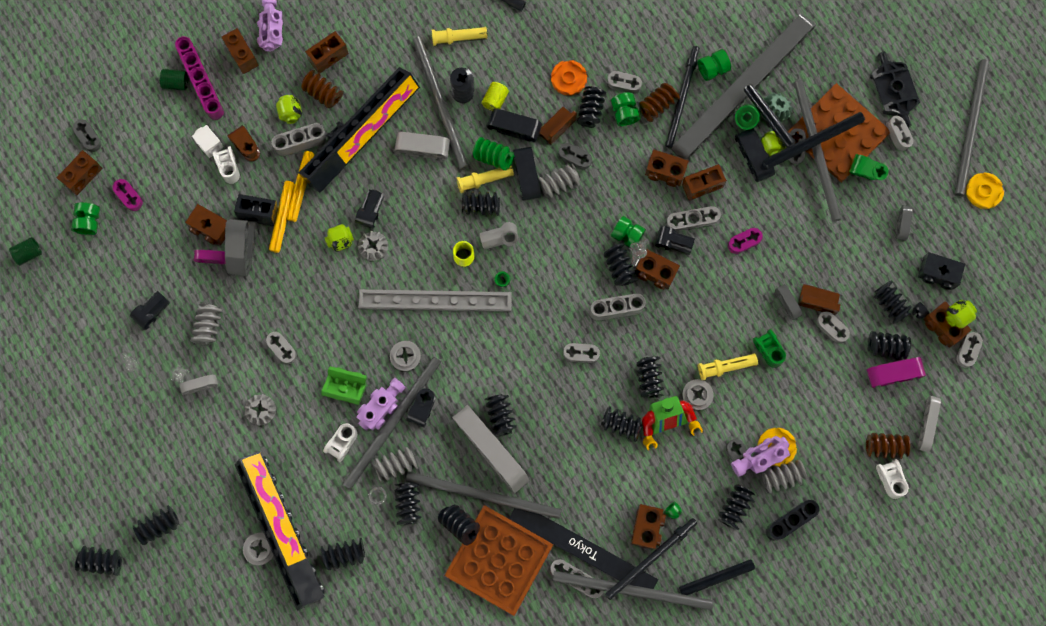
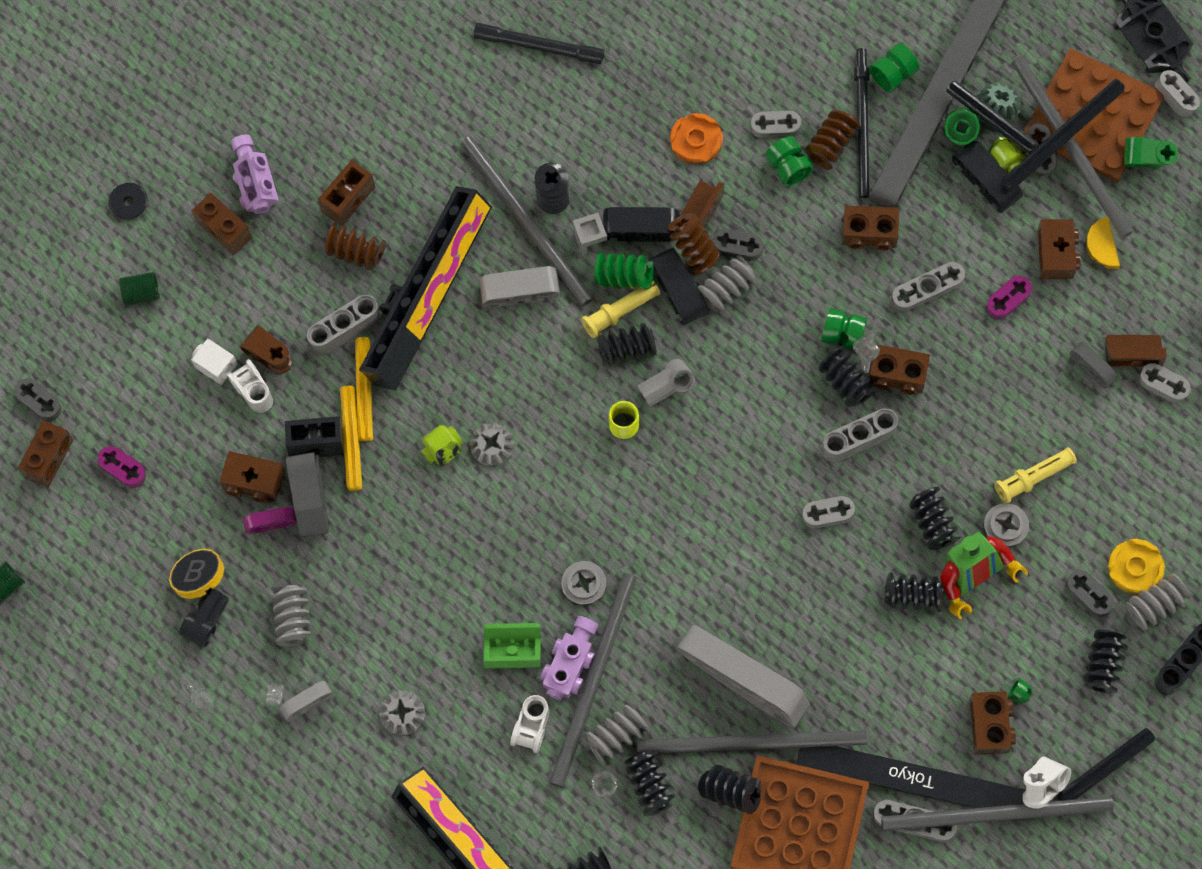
camera: 10 degrees left, 5 degrees down
(85, 218) = (74, 515): green wheel -> none
(153, 279) = (196, 573): none -> tile
(180, 15) = (126, 191): none -> black piece
(198, 70) = (169, 266): magenta beam -> none
(284, 345) = (402, 624): light grey beam -> none
(289, 109) = (315, 286): lime head -> none
(369, 212) = (472, 399): black piece -> none
(421, 411) = (629, 650): black piece -> none
(435, 300) = (602, 495): light grey tile -> none
(450, 35) = (513, 124): light yellow pin -> none
(478, 121) = (588, 231): none -> light grey panel
(495, 95) = (601, 190): neon yellow piece -> none
(499, 281) = (685, 445): green hinge -> none
(500, 415) = (742, 626): black piece -> none
(546, 147) = (695, 242): none -> reddish brown piece
(590, 106) = (740, 170): black piece -> none
(670, 240) = (906, 324): black piece -> none
(670, 578) = (1044, 782): none -> white piece
(679, 534) = (1037, 721): black bar -> none
(703, 182) = (928, 232): reddish brown brick -> none
(763, 457) = (1121, 582): lavender brick -> none
(768, 345) = (1084, 431): green piece -> none
(787, 206) = (1052, 262): none -> reddish brown brick
(818, 221) = (1101, 244): none -> yellow tile

